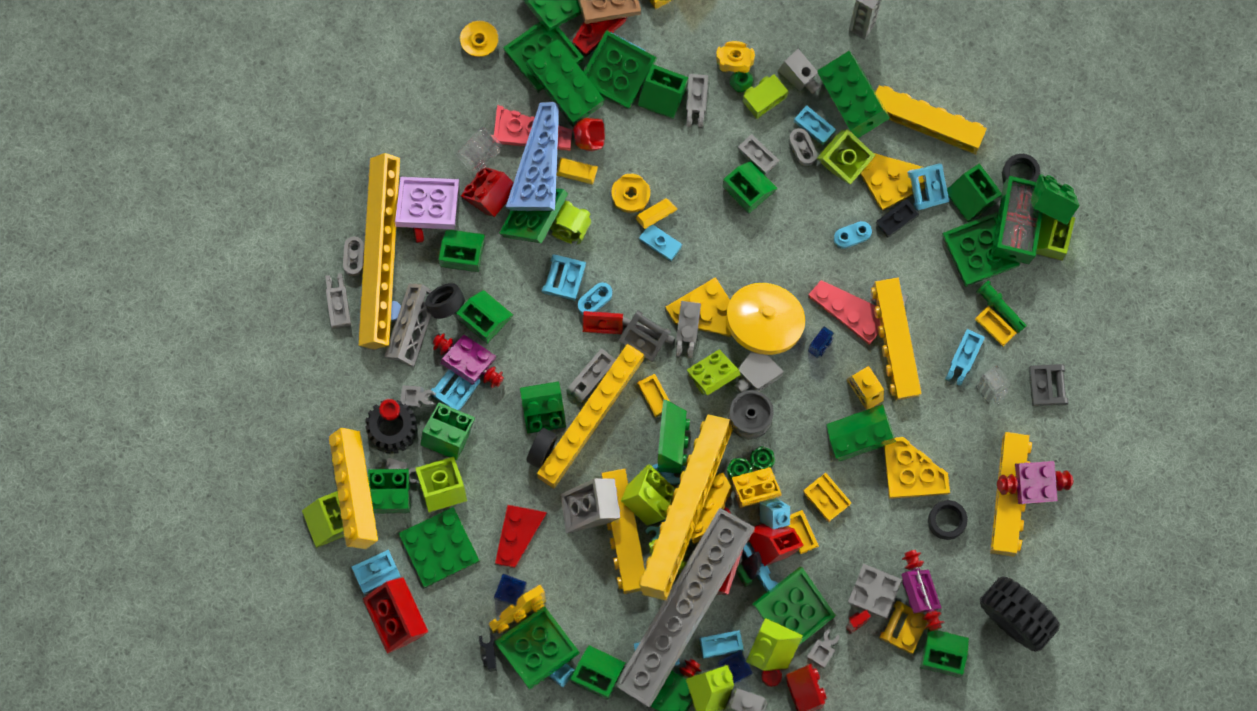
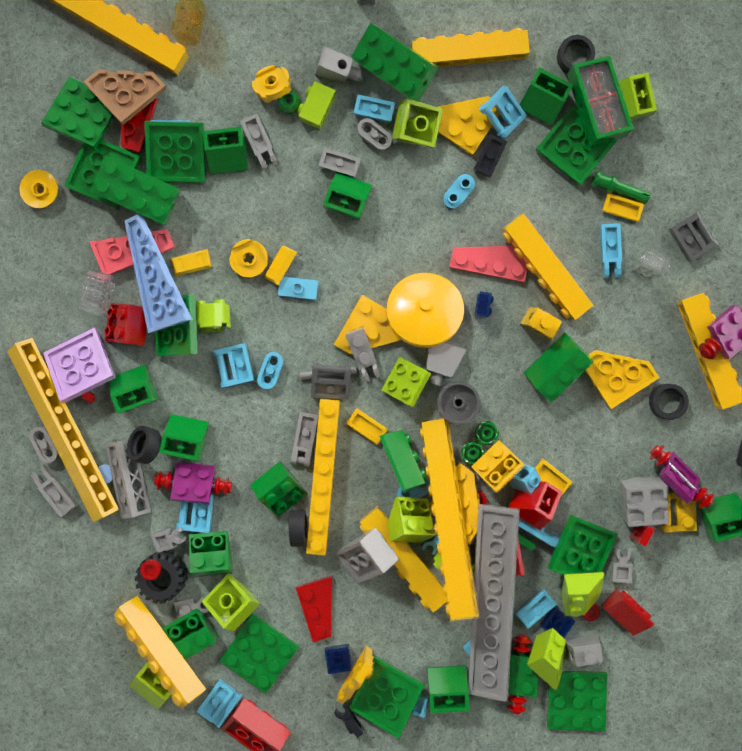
camera: 25 degrees left, 15 degrees up
(589, 134) = (183, 225): red hair -> none
(602, 322) = (288, 388): red plate -> none
(752, 565) = (529, 534): black tile -> none
(827, 497) = (558, 436): yellow plate -> none
(1054, 199) = (625, 65): green slope -> none

